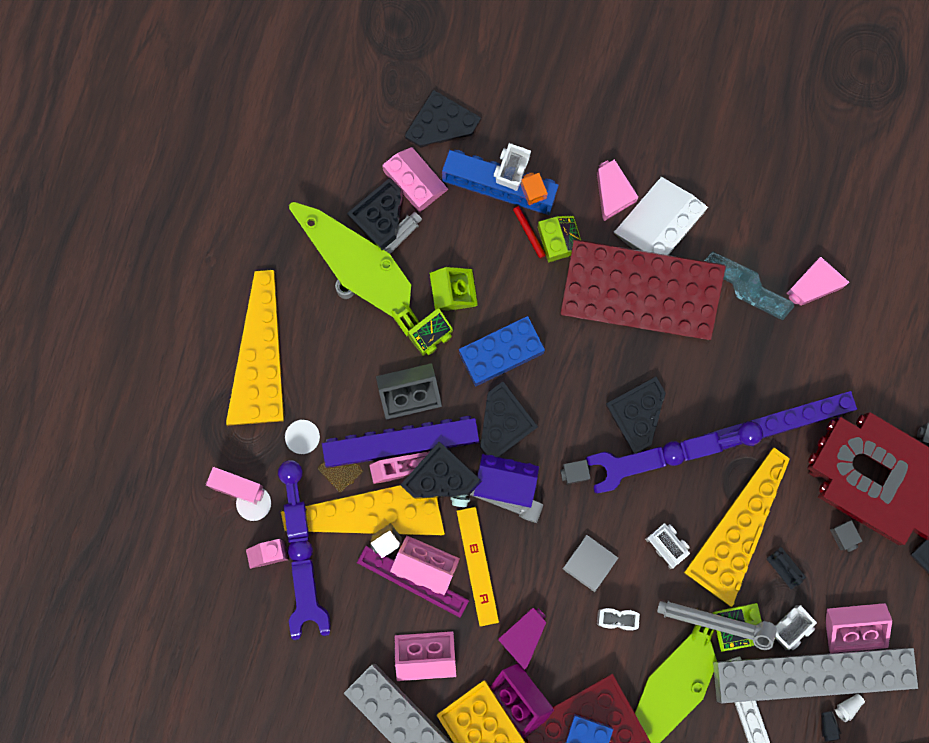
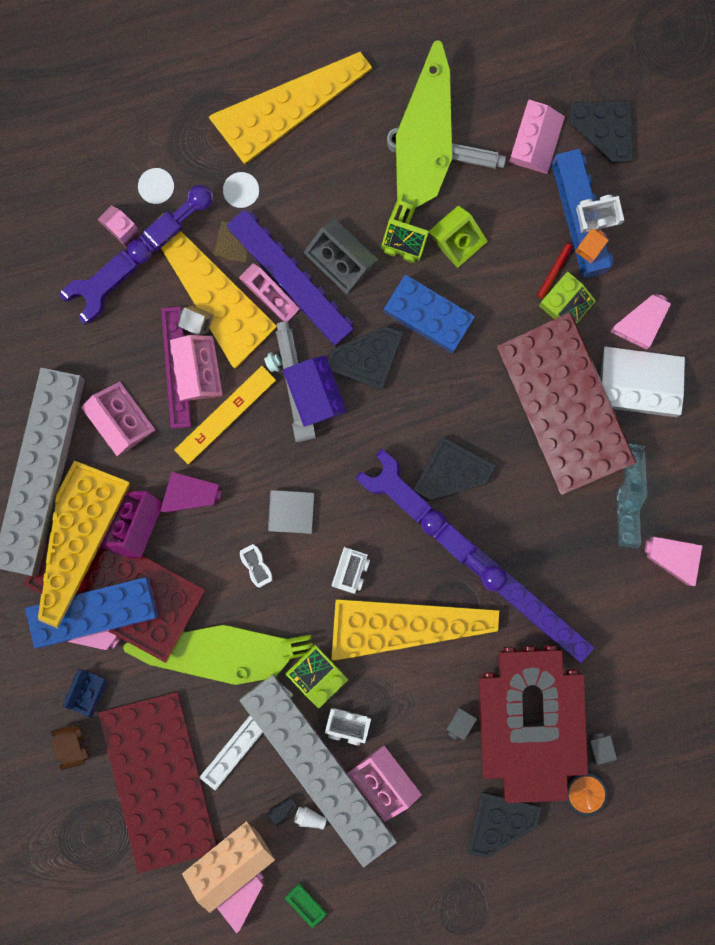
camera: 60 degrees right, 5 degrees up
(235, 486) = (158, 158): bright pink slope -> none
(379, 213) = (483, 126): black plate -> none
(440, 476) = (281, 330): black plate -> none
(575, 472) = (362, 448): dark grey brick -> none
(762, 634) = (319, 698): light grey piece -> none
(786, 568) = (397, 688): black hinge -> none

